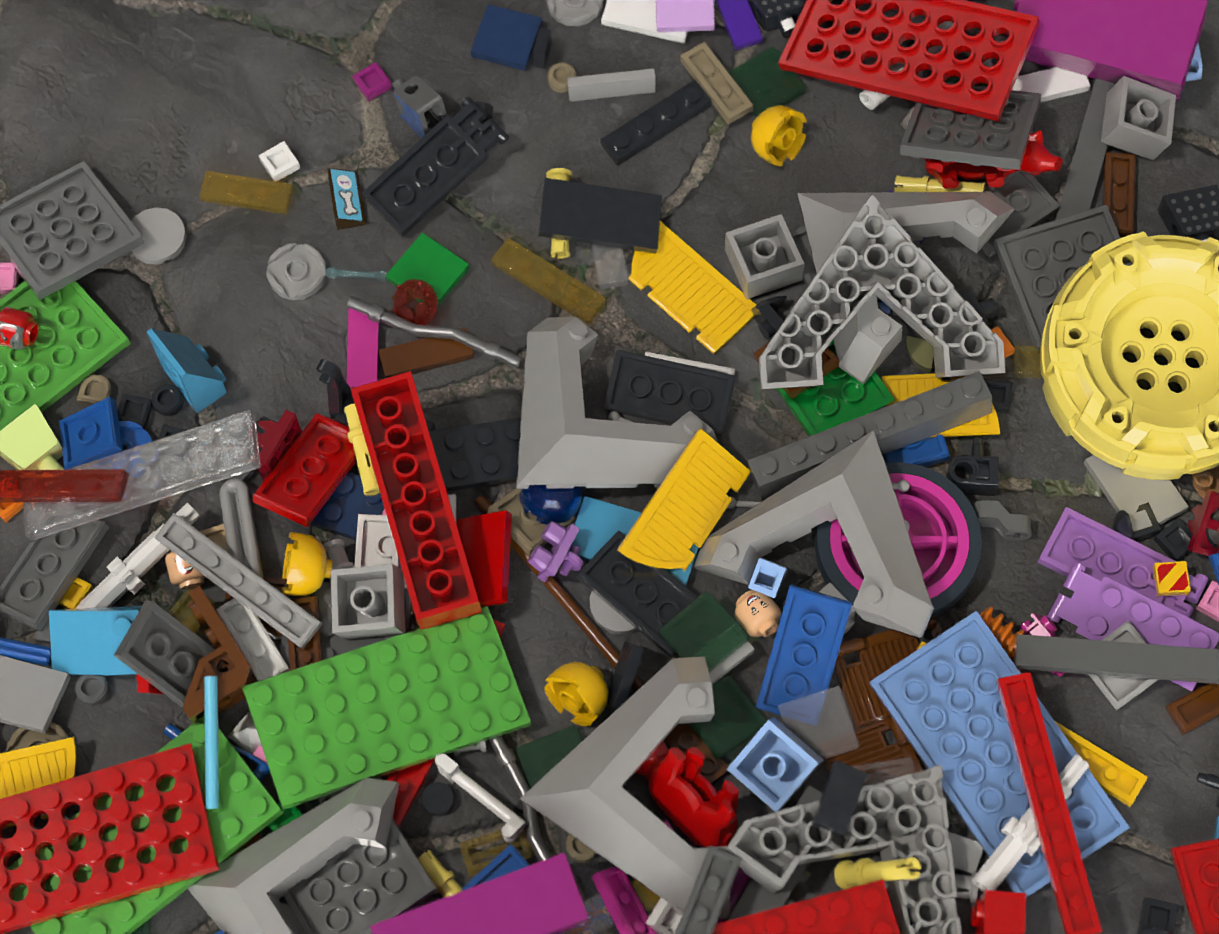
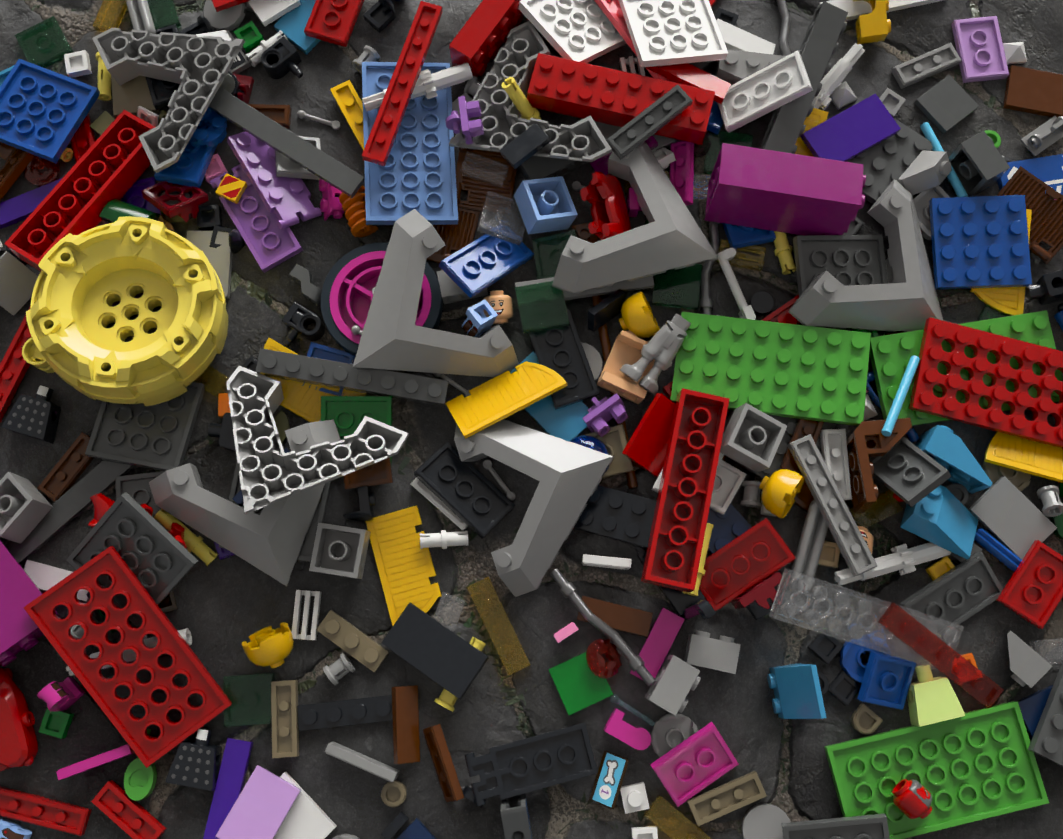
camera: 150 degrees left, 10 degrees up
(128, 713) = (955, 457): none -> dark azure slope
(213, 241) = (726, 798): none -> dark tan plate
(263, 253) = (694, 764): none -> dark pink tile
(294, 367) = (712, 653): none -> light grey brick
(311, 196) = (634, 797): none -> white plate
(325, 308) = (673, 685): none -> light grey brick
(351, 248) = (633, 736): none -> dark pink leg
(465, 399) = (606, 562): none -> white tile
(470, 307) = (565, 632): none -> bright pink tile
(528, 124) = (443, 763): none -> reddish brown tile
(529, 653) = (660, 348): none -> light grey piece
(558, 624) = (624, 351): none -> light nougat panel
(588, 139) = (405, 724): none -> reddish brown tile
(660, 330) = (443, 539): none -> white pin
(691, 152) = (339, 669): none -> light grey bush
(695, 187) = (353, 641): none -> dark tan plate
(767, 175) = (297, 610): none -> white tile
(939, 795) = (469, 128): none -> medium lavender hips
(1110, 741) = (335, 124): none -> light grey hinge
(1135, 856) = (368, 55): none -> light grey bush

